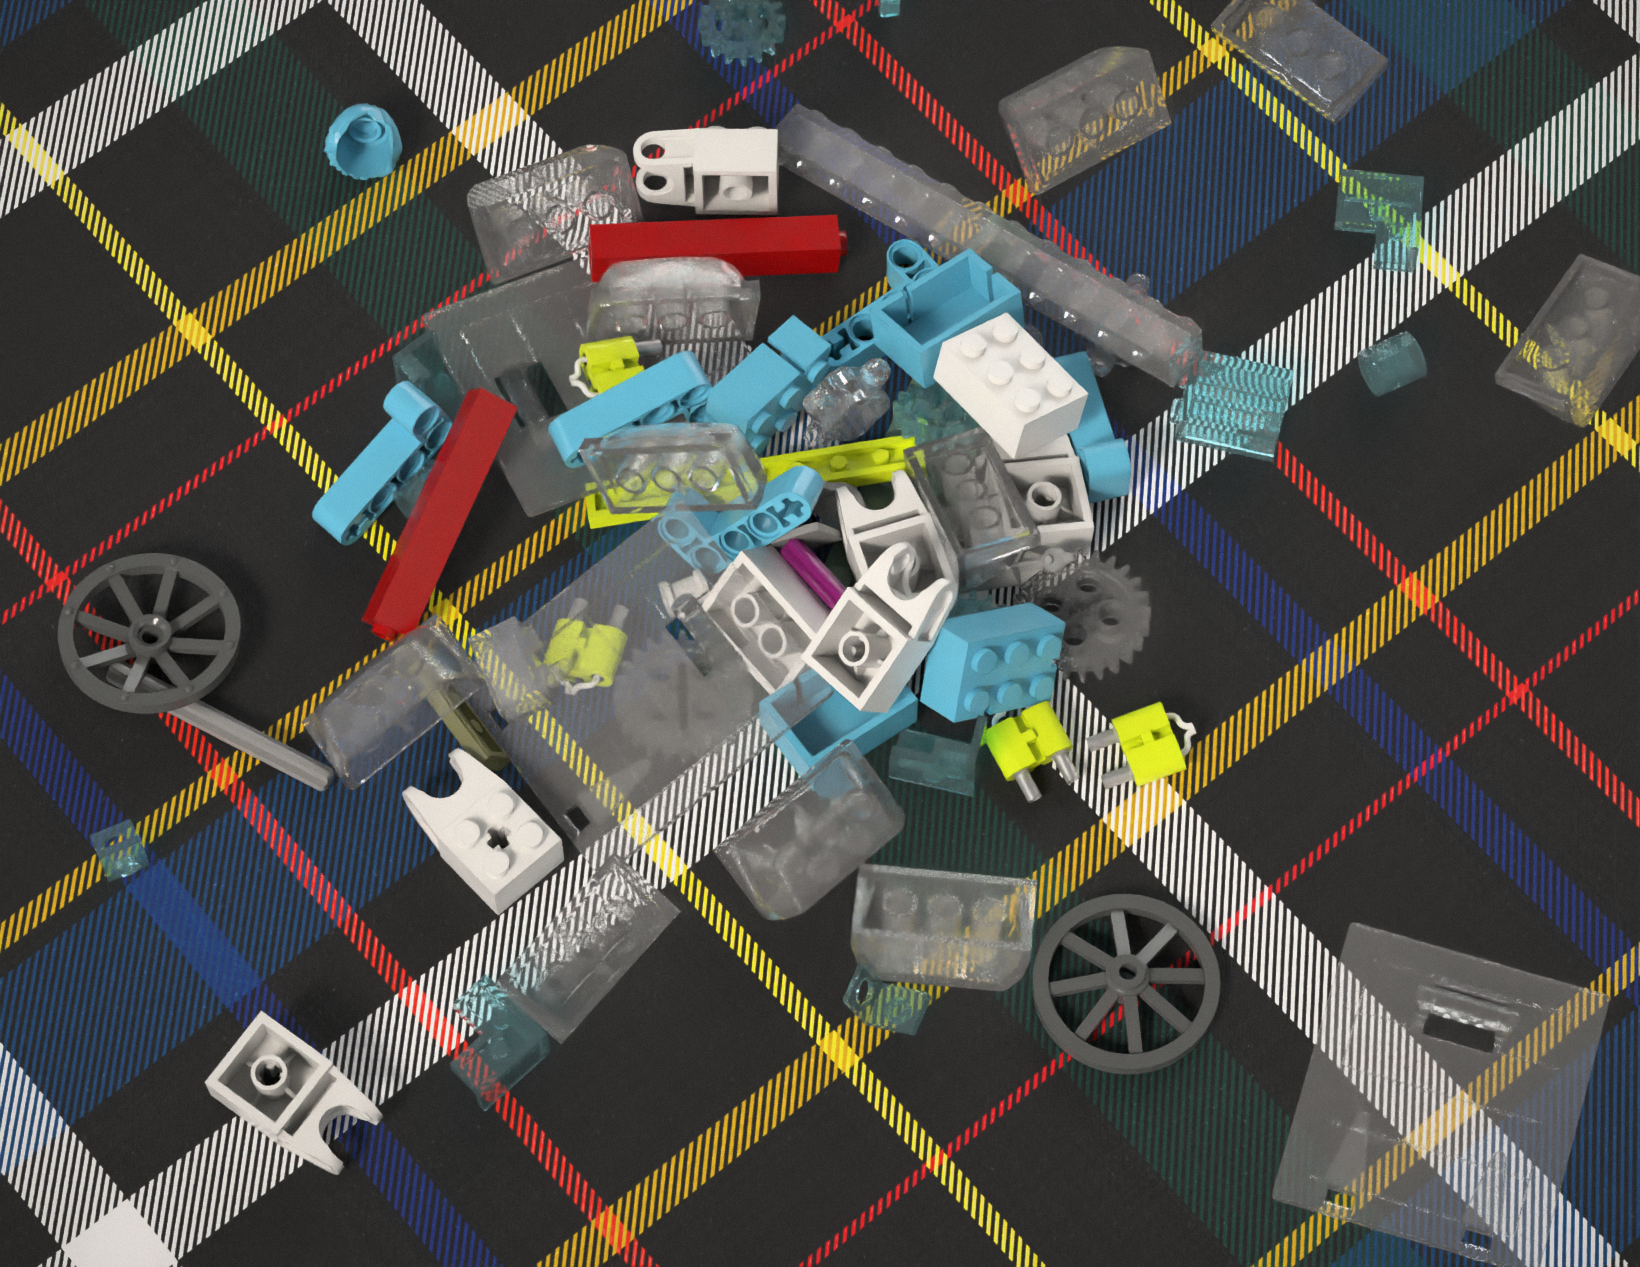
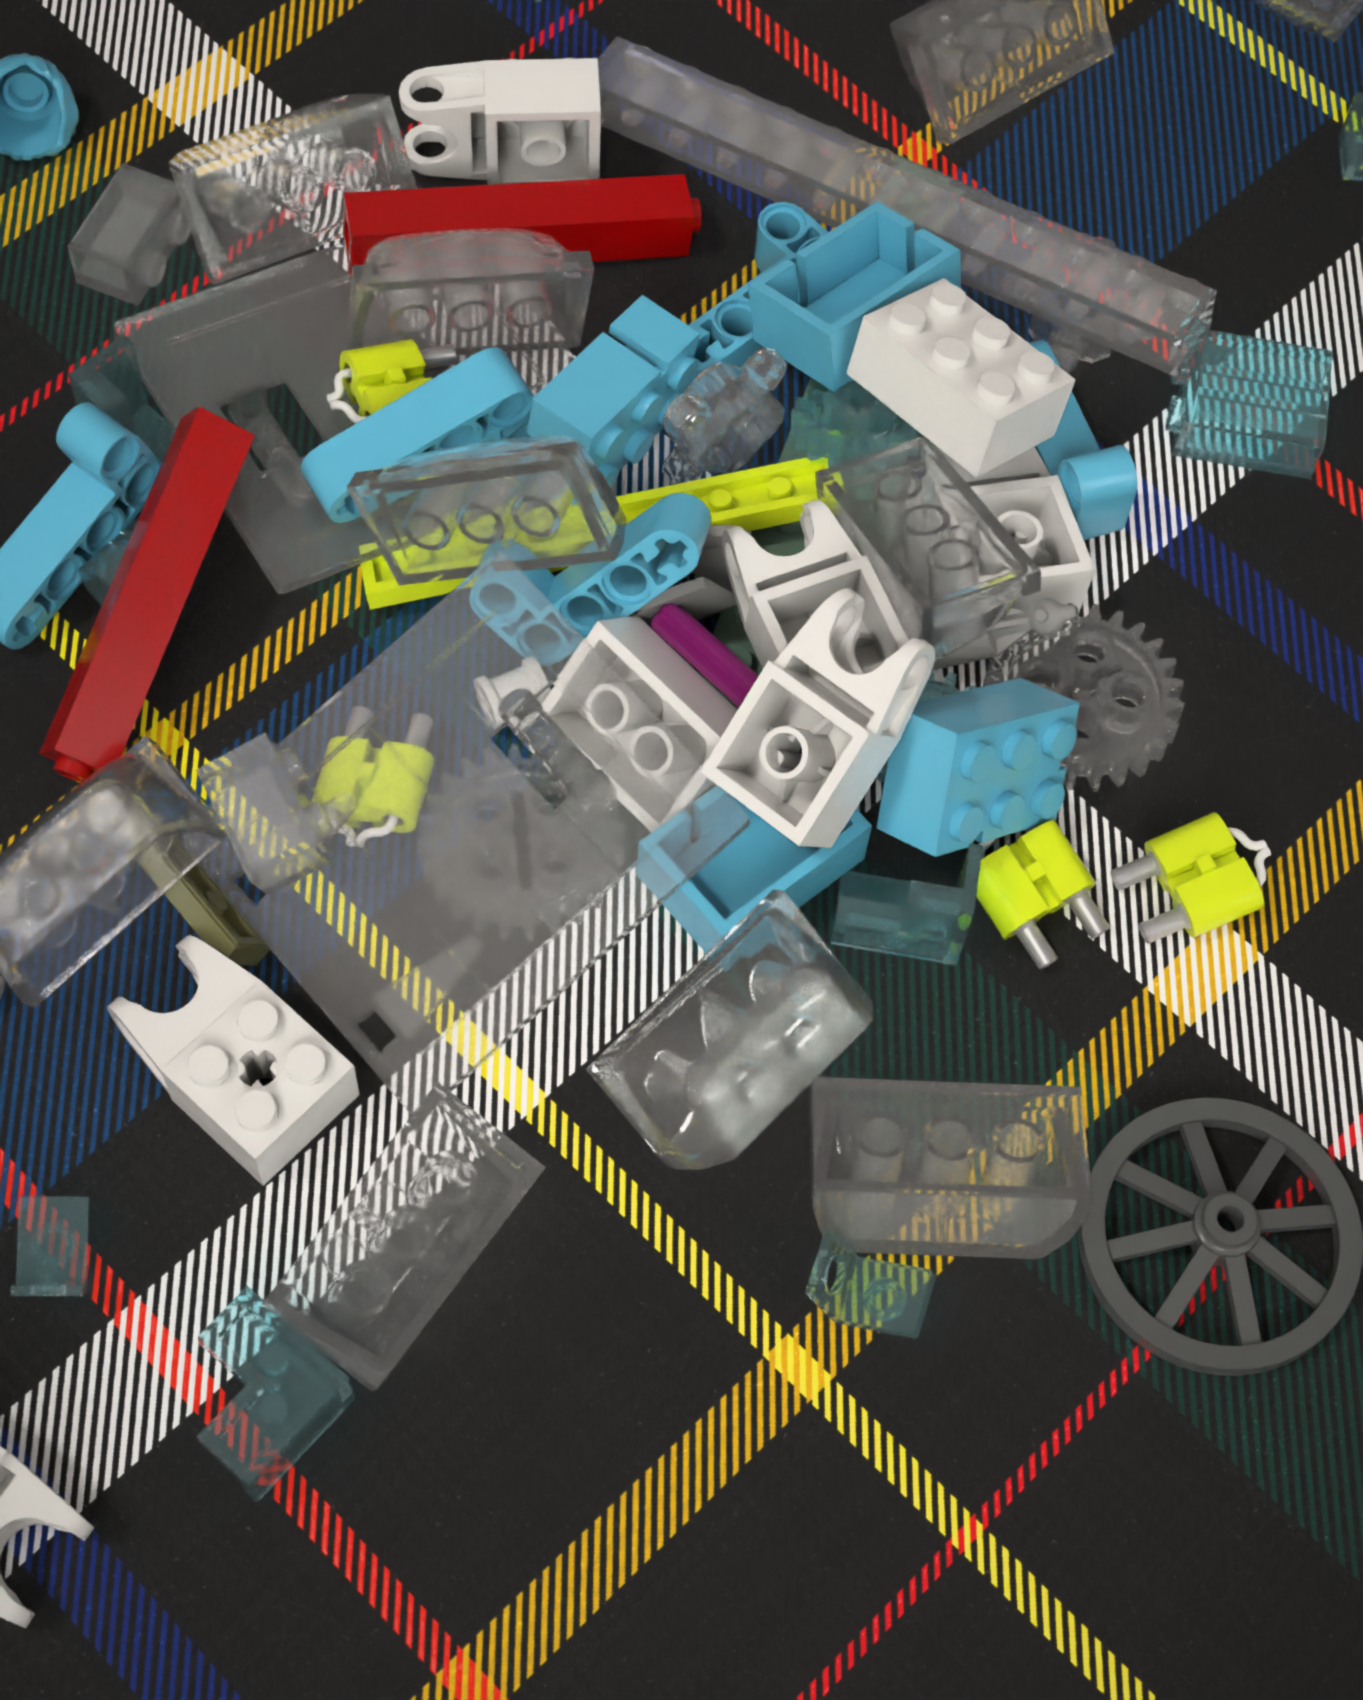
camera: 10 degrees left, 0 degrees up
(361, 942) = (52, 1246): none -> clear light blue bracket
(435, 244) = (129, 235): none -> clear brick

